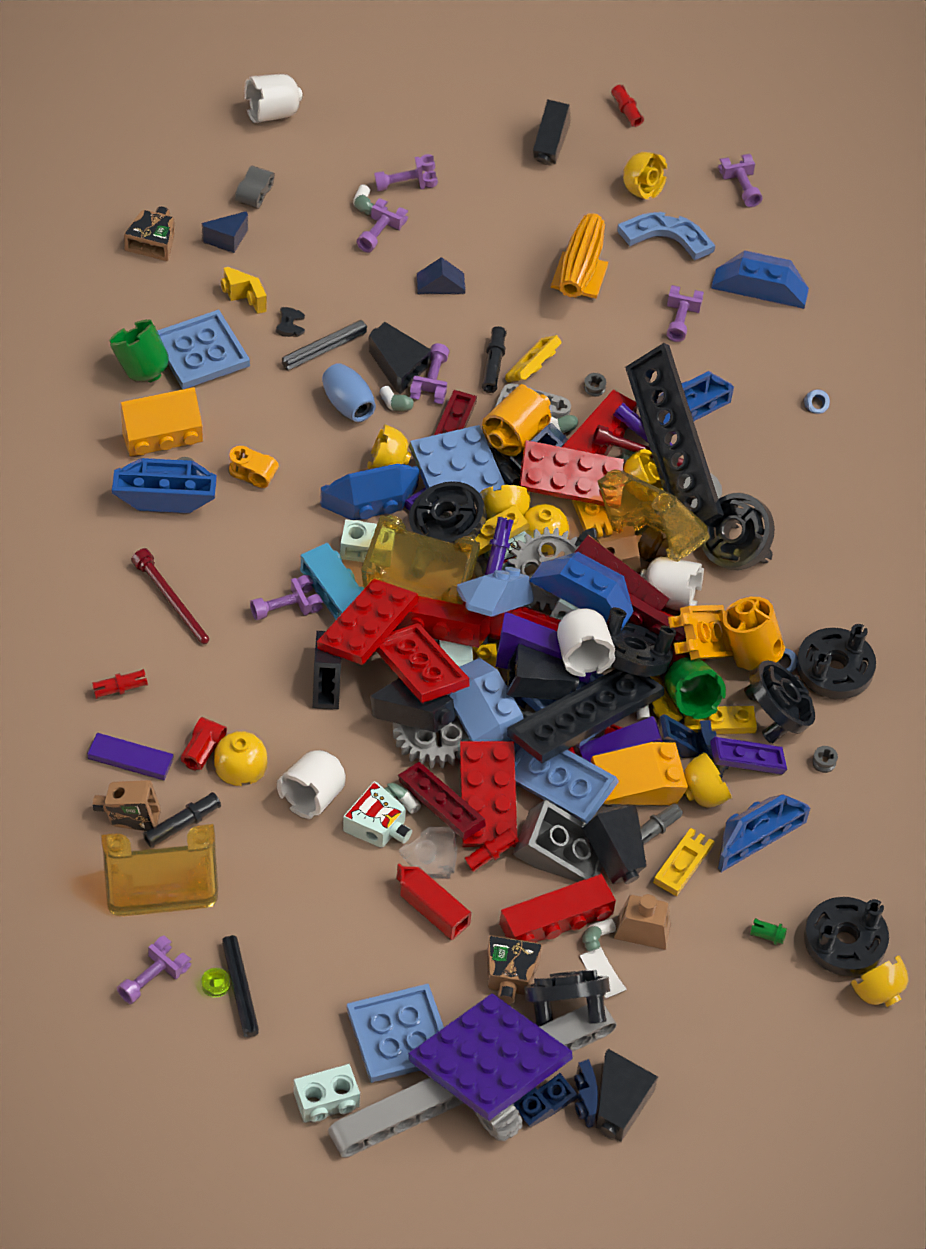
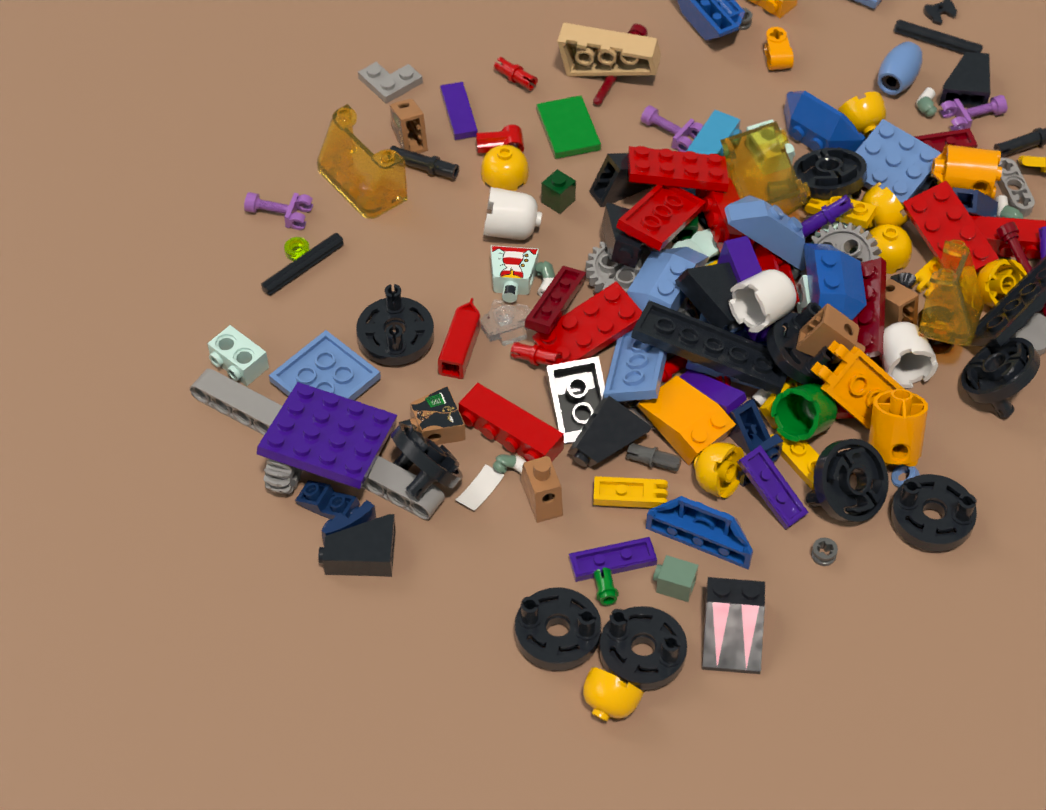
camera: 65 degrees right, 0 degrees up
(47, 799) = (388, 85): none -> light grey plate
(167, 594) = (606, 52): none -> tan wedge
(220, 679) = (568, 127): none -> green tile
(306, 730) = (558, 191): none -> dark green brick
(384, 927) = (391, 314): none -> black piece
(646, 619) = (825, 328): none -> medium nougat torso
(740, 912) = (616, 557): none -> dark purple tile
(793, 875) = (676, 578): none -> sand green brick
(800, 968) = (537, 616): none -> black piece
(860, 860) = (733, 625): none -> slope

